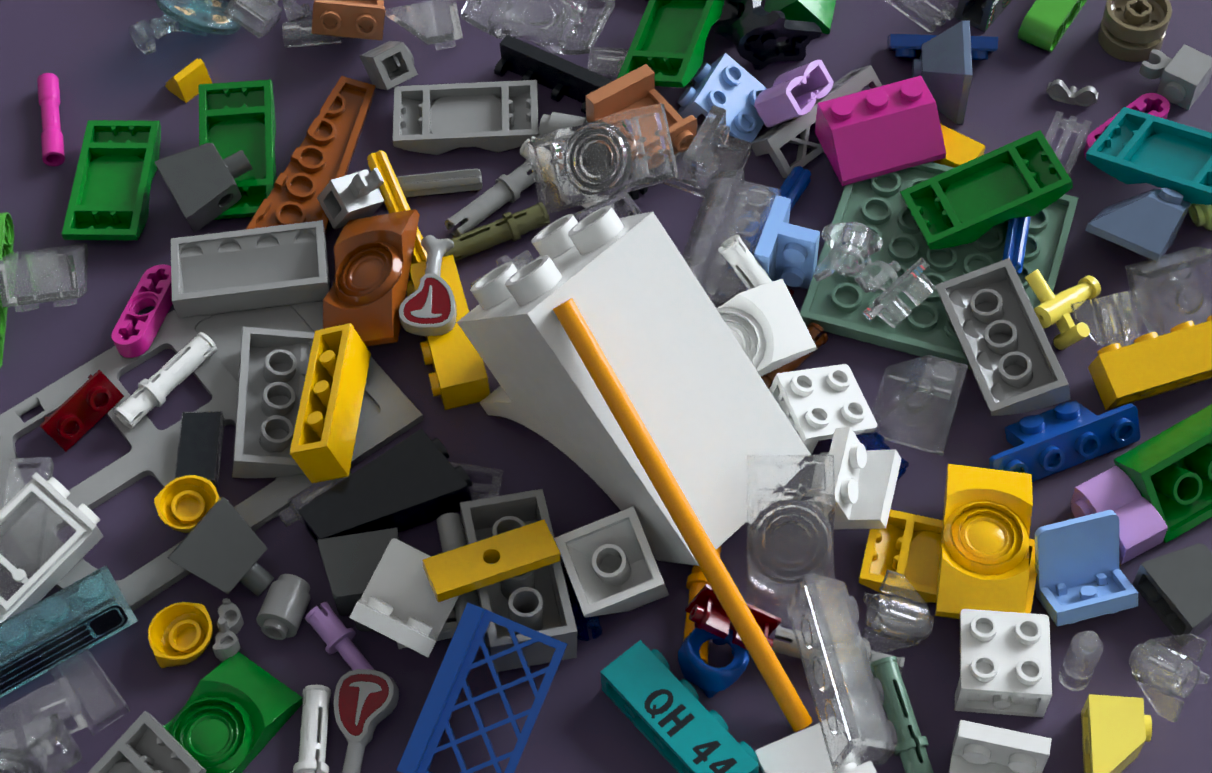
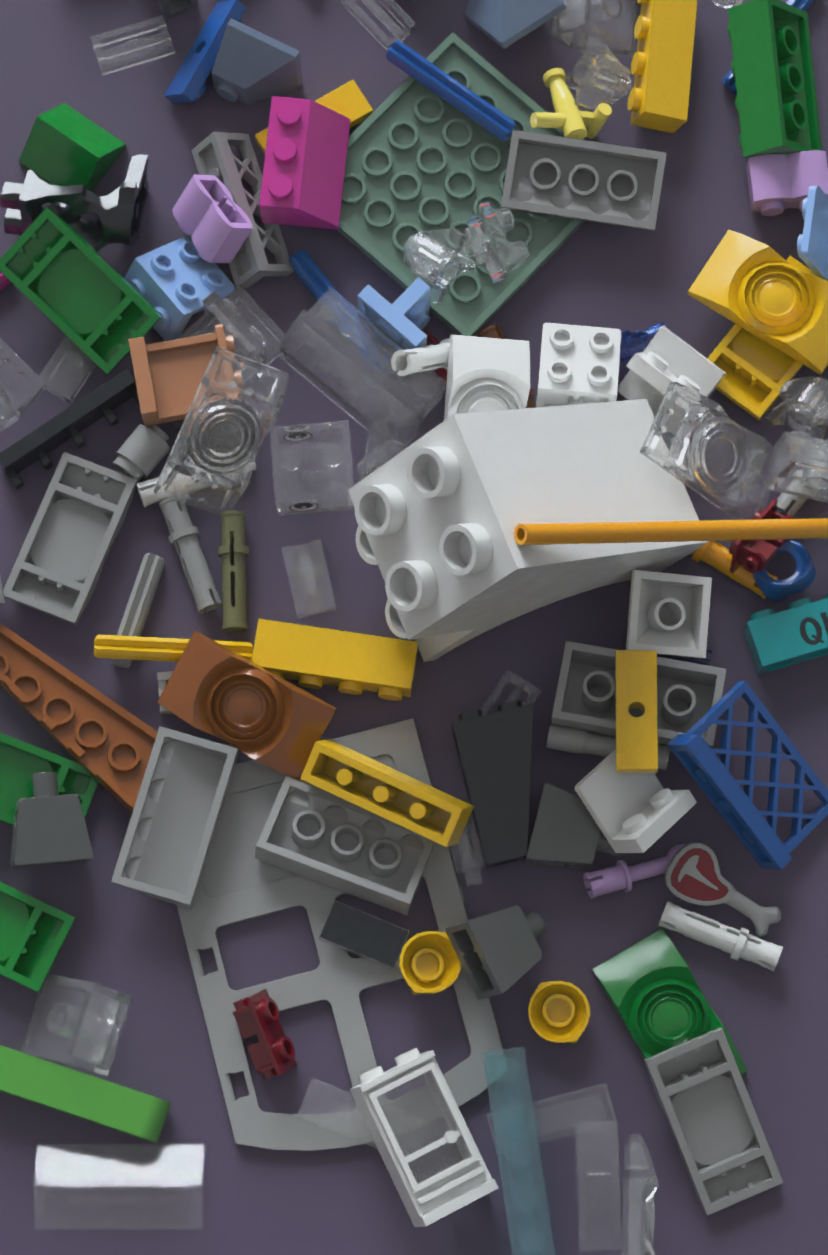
camera: 70 degrees left, 20 degrees up
(146, 325) = (141, 928): dark pink beam -> none
(153, 391) = (270, 942): white pin -> none
(229, 624) = (558, 967): light grey piece -> none
(284, 607) = (569, 913): light grey brick -> none
(352, 197) = (136, 688): light grey brick -> none
(432, 306) = (317, 659): light grey piece -> none
(919, 402) = (603, 282): clear slope -> none
(987, 191) = (426, 109): green slope -> none
(1065, 438) = (691, 187): blue bracket -> none

